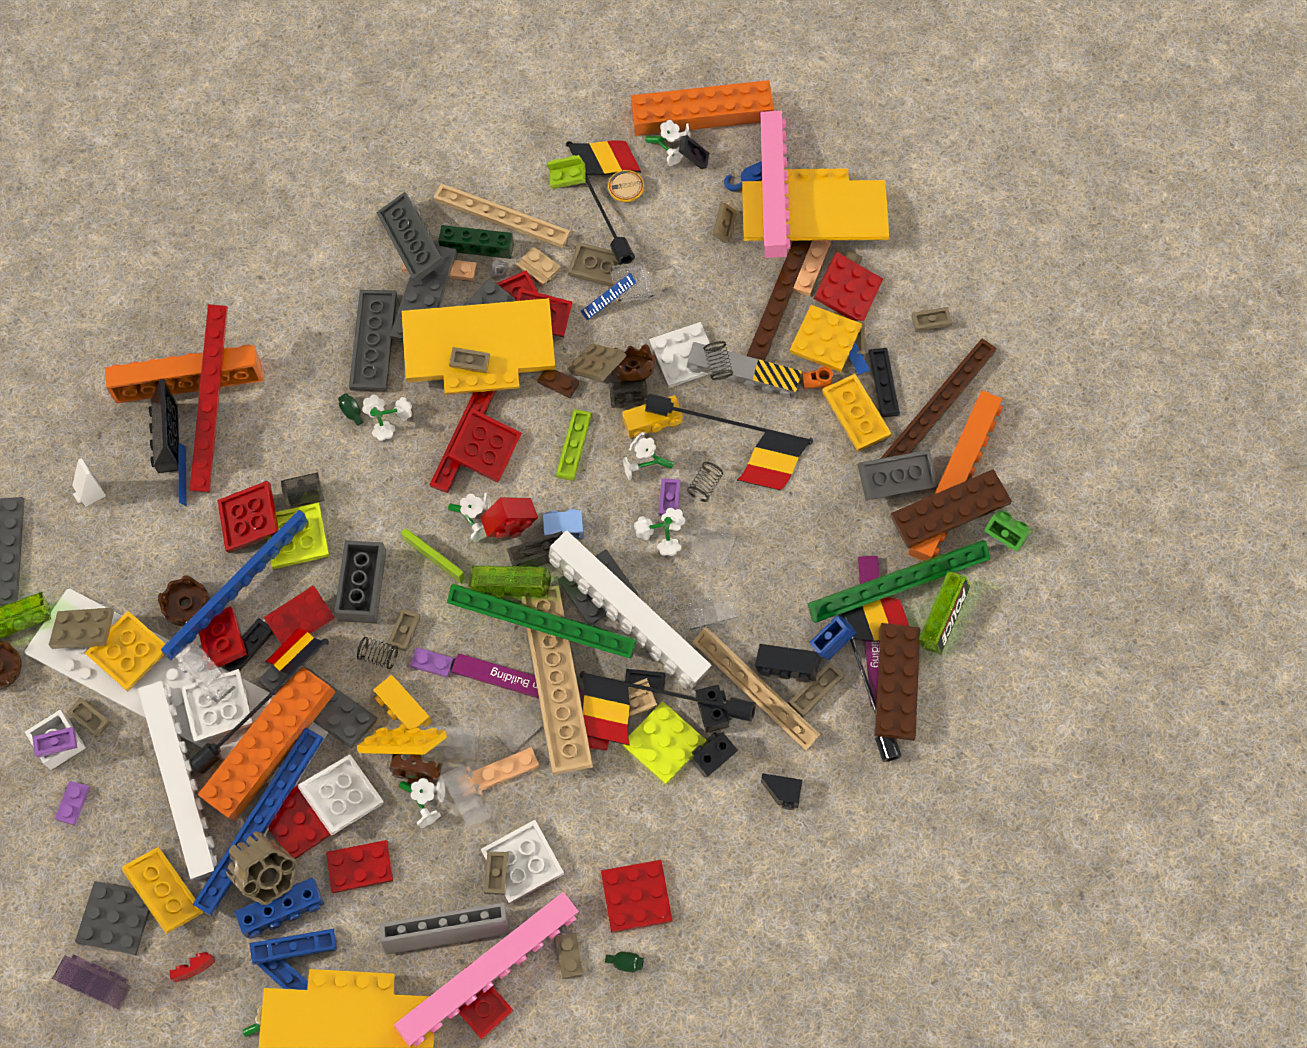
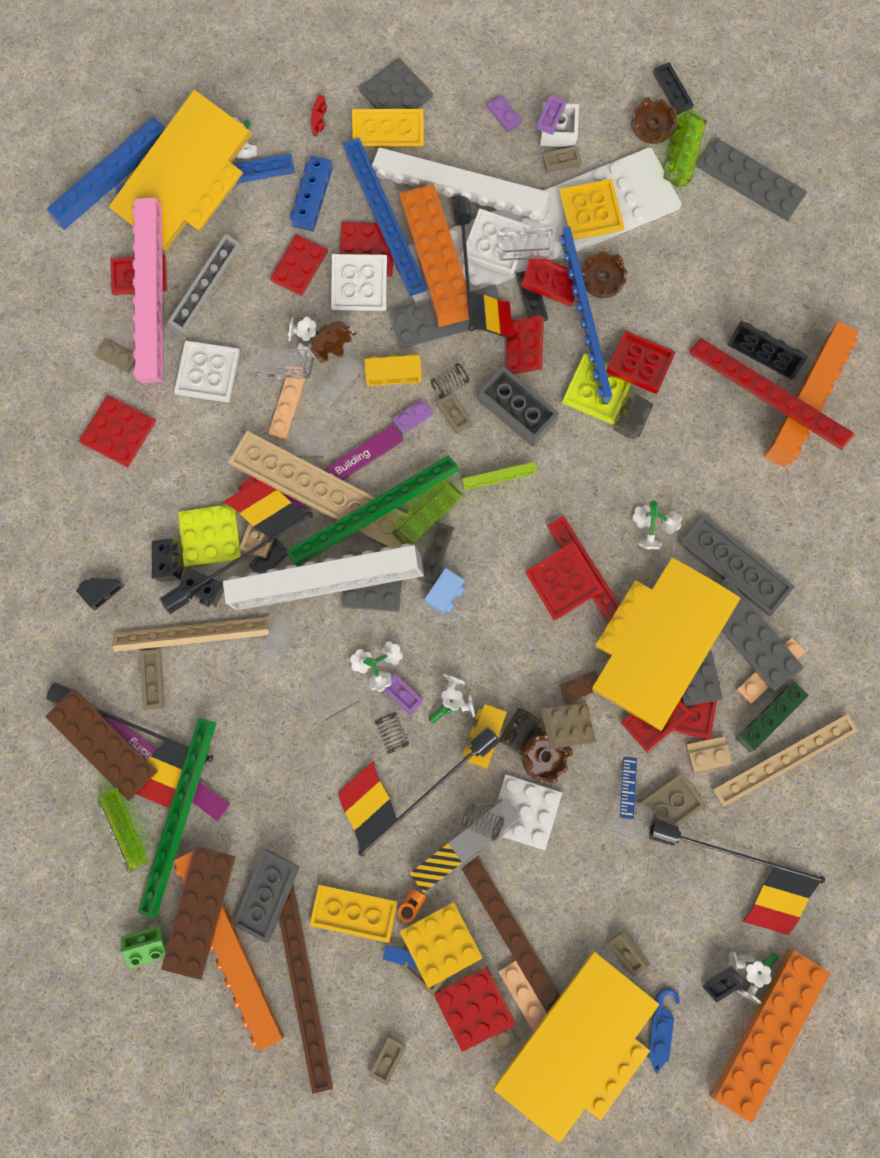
camera: 125 degrees right, 10 degrees up
(81, 628) = (635, 189): dark tan plate -> none
(86, 485) = (759, 264): white slope -> none
(92, 980) = (357, 46): clear purple brick -> none
(182, 474) = (719, 341): blue sticker -> none
(262, 869) = (339, 190): dark tan piece -> none
(292, 946) = (276, 183): blue plate -> none
(350, 408) = (683, 503): dark green plant -> none
(402, 741) = (357, 342): yellow plate -> none
(410, 237) = (814, 659): dark grey plate -> none
(469, 360) = (647, 617): dark tan plate -> none
(470, 508) = (509, 523): white plant -> none
(496, 873) = (210, 343): dark tan plate -> none
(499, 264) = (730, 717): light grey plate -> none
(509, 517) = (478, 548): red brick -> none
(566, 171) = (788, 851): lime bracket -> none
(573, 445) = (512, 656): lime tile -> none
(625, 186) = (734, 893): piece -> none
(625, 961) = (78, 388): dark green plant -> none
(773, 184) = (631, 1028): bright pink brick -> none
(787, 662) = (187, 671): black brick -> none
(832, 637) = (175, 722): blue brick -> none
(884, 382) = (364, 964): black tile -> none

